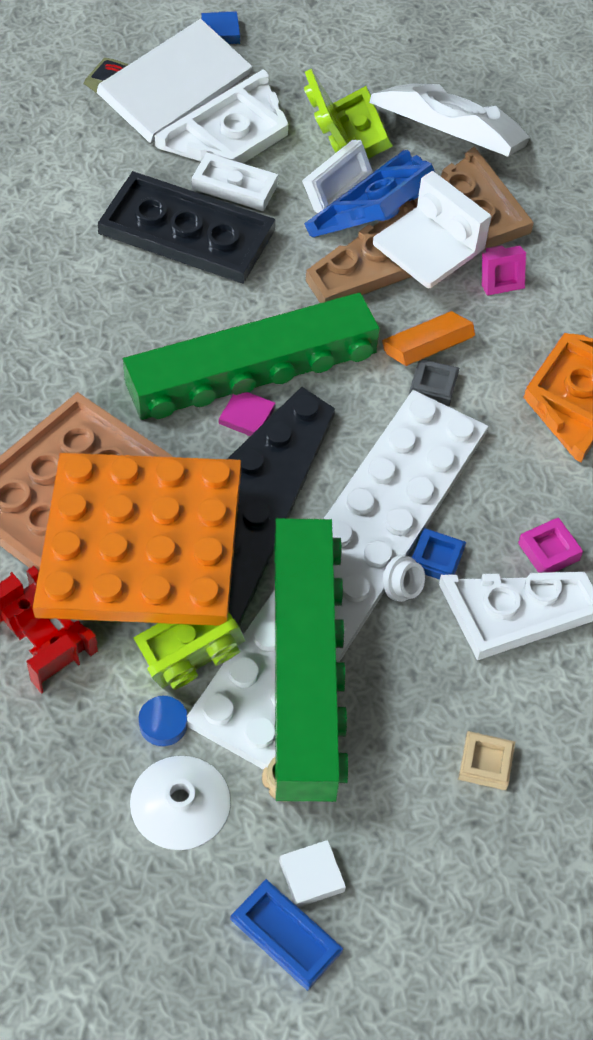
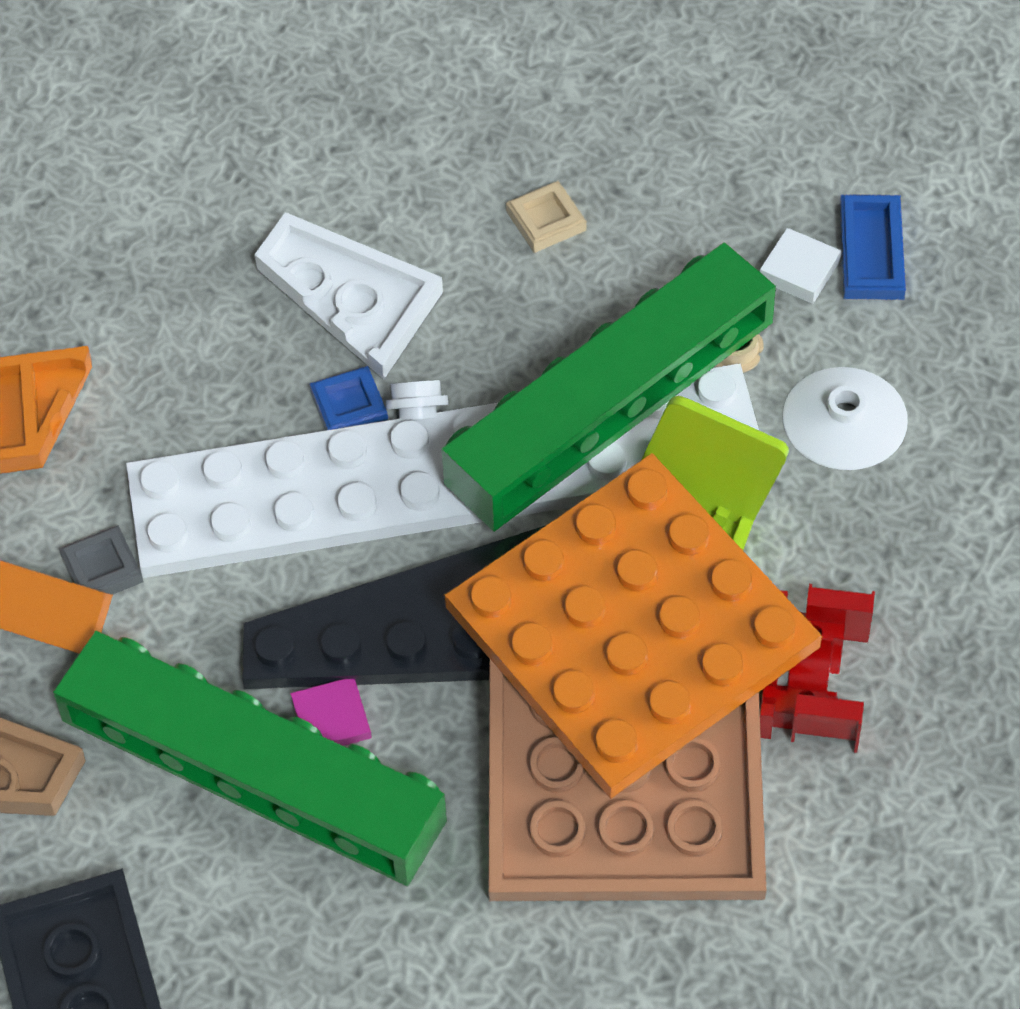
camera: 125 degrees left, 0 degrees up
(163, 720) = (792, 492): blue tile -> none
(550, 546) = (245, 308): dark pink plate -> none

